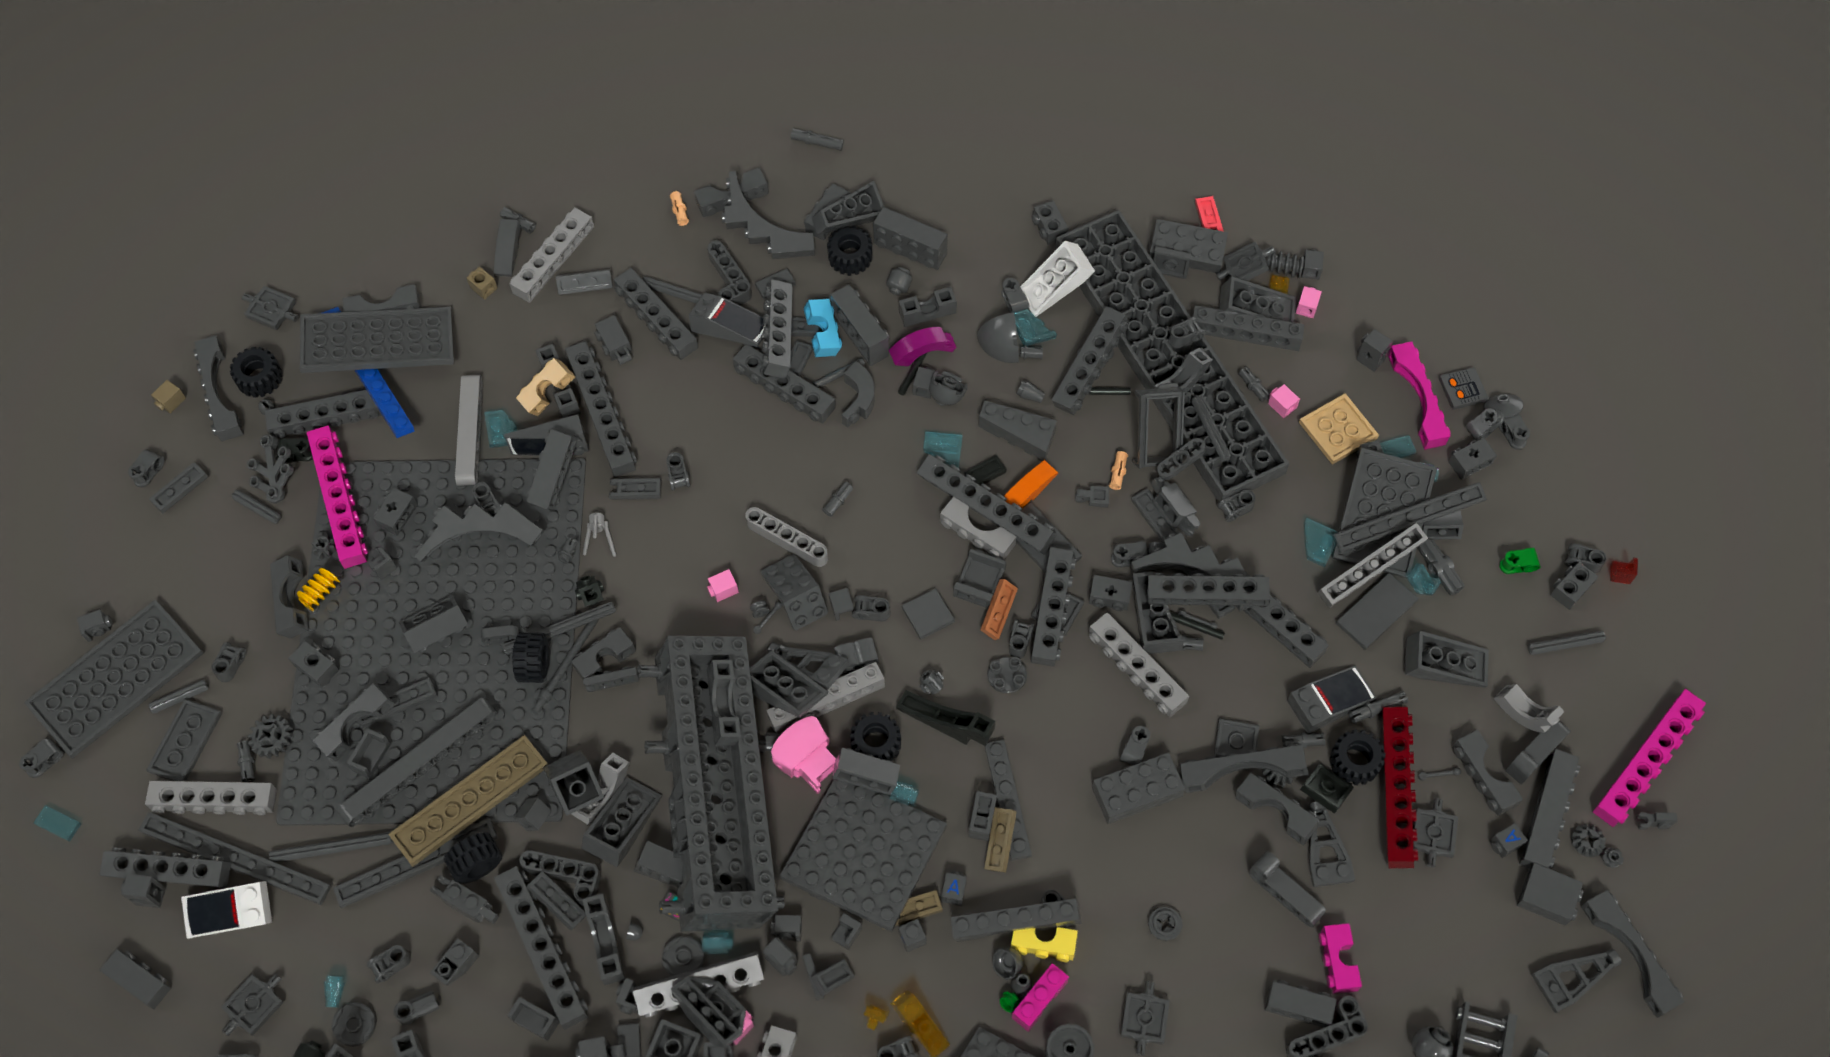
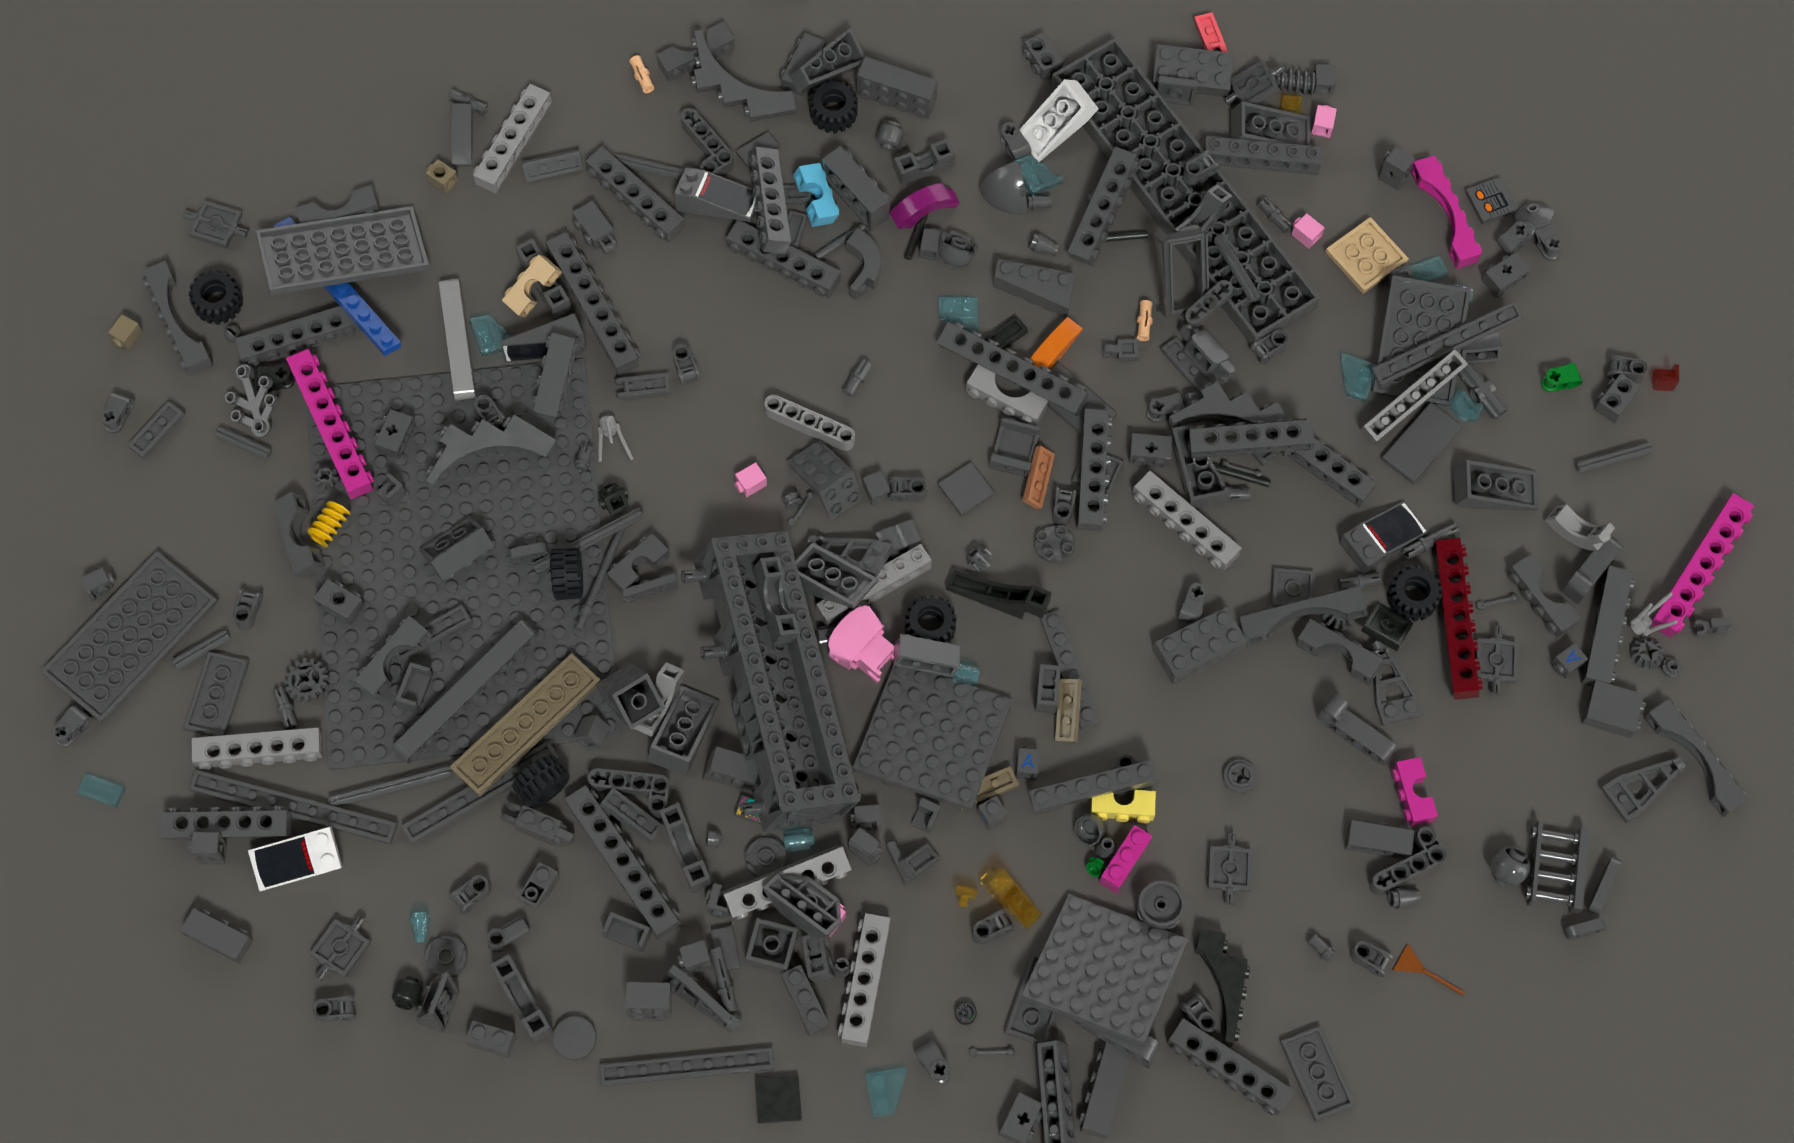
camera: 10 degrees left, 5 degrees up
(1586, 809) = (1643, 622): none -> light grey plant

